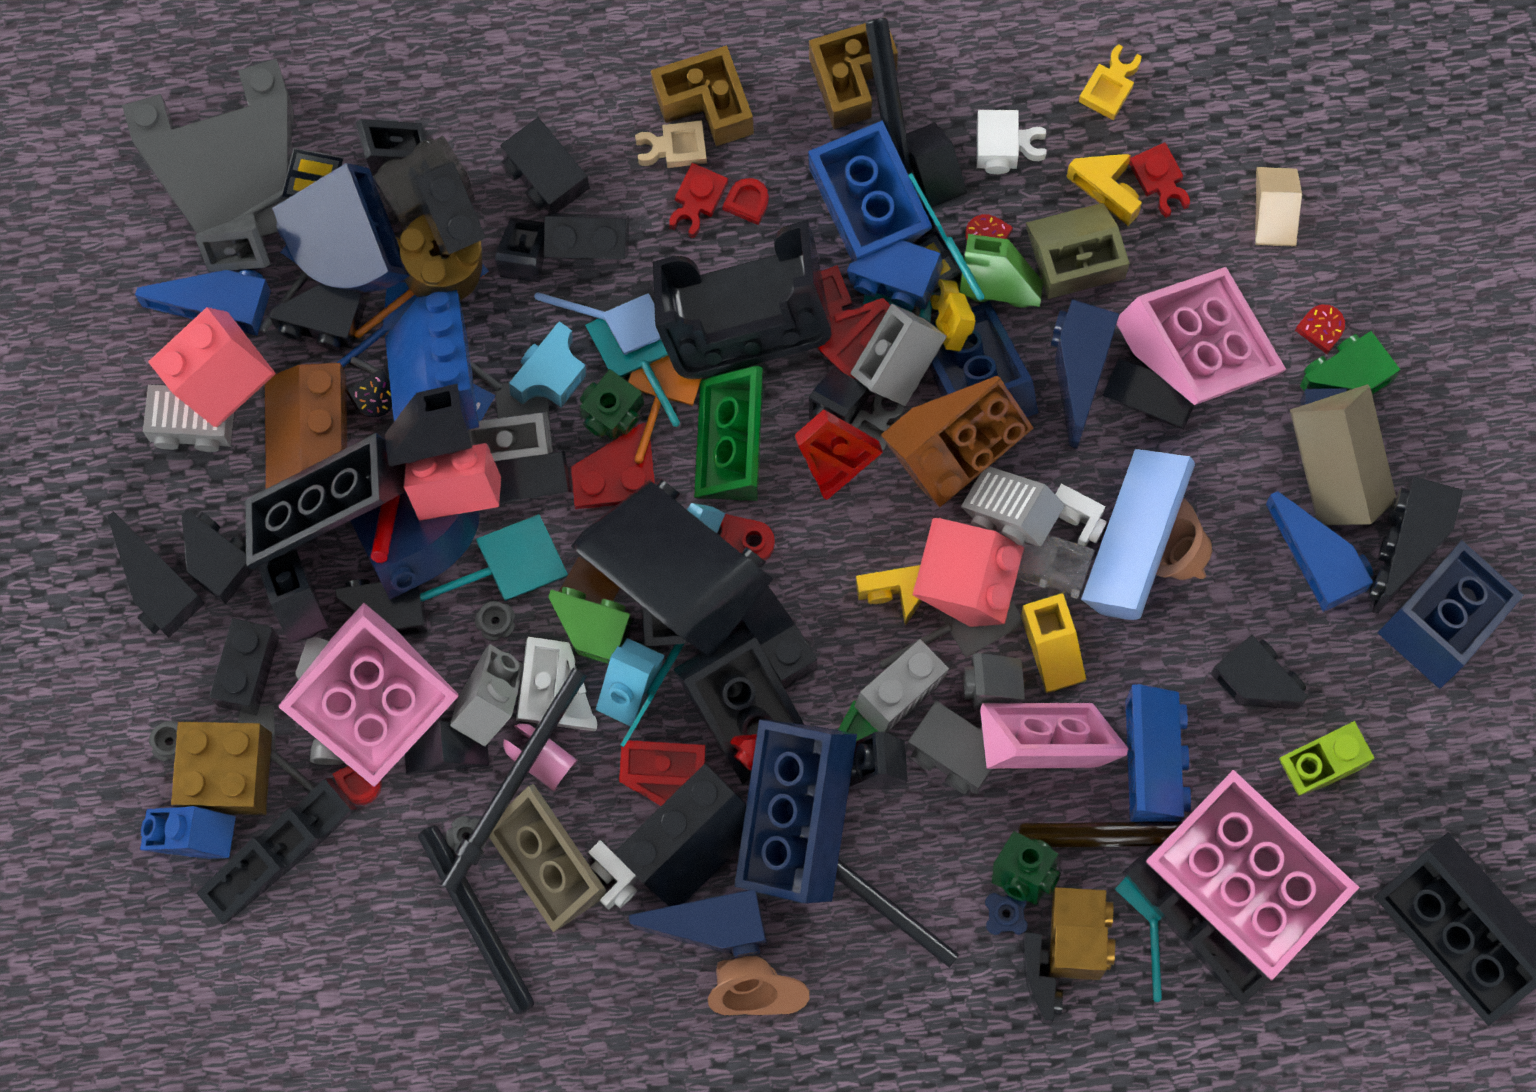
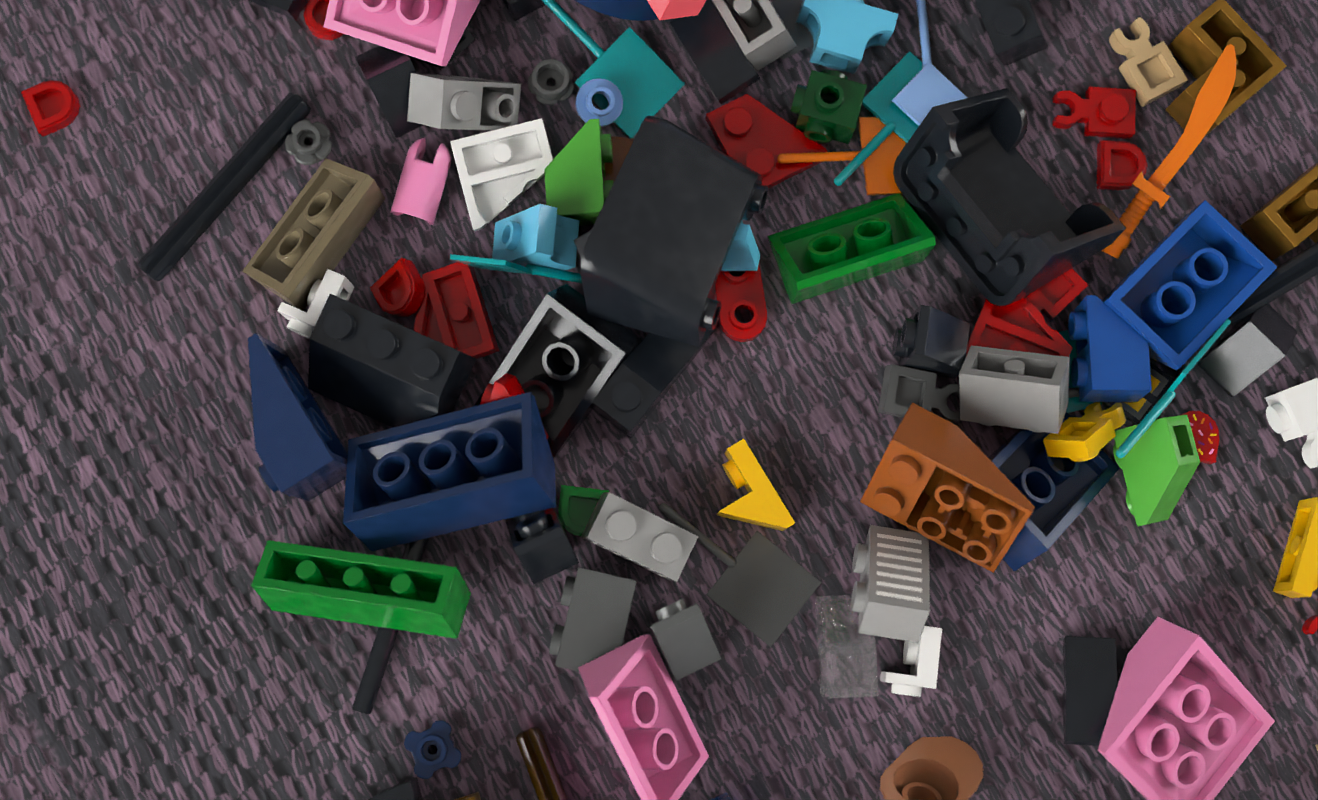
camera: 60 degrees right, 5 degrees up
(344, 1042) = (51, 106): none -> red tile
(470, 850) = (289, 148): black bar -> none
(524, 594) = (588, 111): none -> medium blue plate
(624, 805) = (400, 289): none -> red tile
(738, 120) = (1205, 111): none -> orange sword
(754, 988) = (248, 502): nougat piece -> none
(835, 451) = (874, 360): red wing -> none
(860, 914) = (362, 588): none -> green brick
(968, 572) = (796, 561): coral slope -> none
(1026, 868) = (501, 744): dark green brick -> none
(1053, 642) = (756, 688): yellow slope -> none
(1078, 250) = (1221, 546): olive slope -> none
(1082, 348) = (1113, 592): dark blue slope -> none
(1137, 533) = (921, 738): light blue brick -> none

